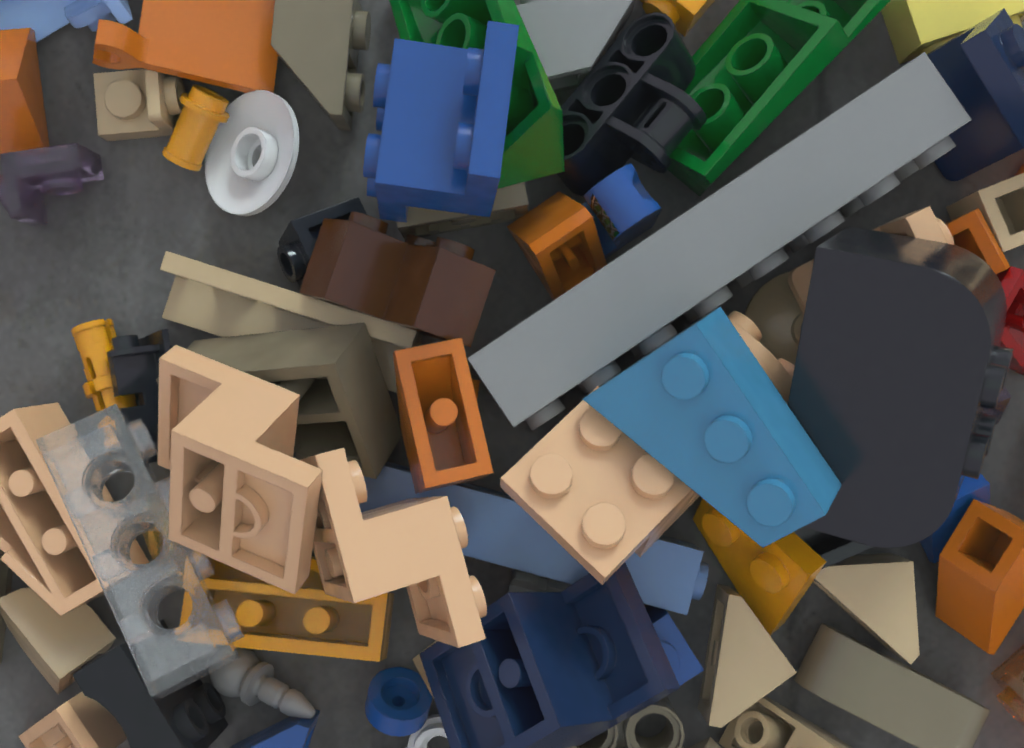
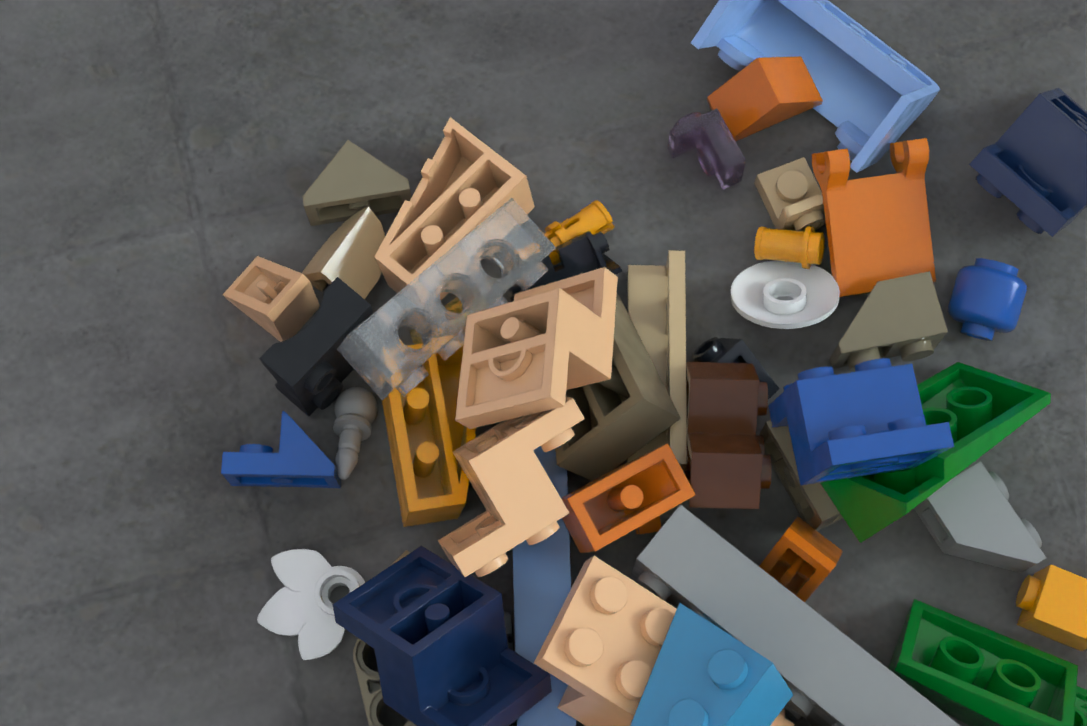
camera: 70 degrees right, 15 degrees down
(397, 701) = (369, 545): blue tile -> none
(621, 209) = (847, 599): blue leg -> none
(630, 105) = (934, 585): black piece -> none

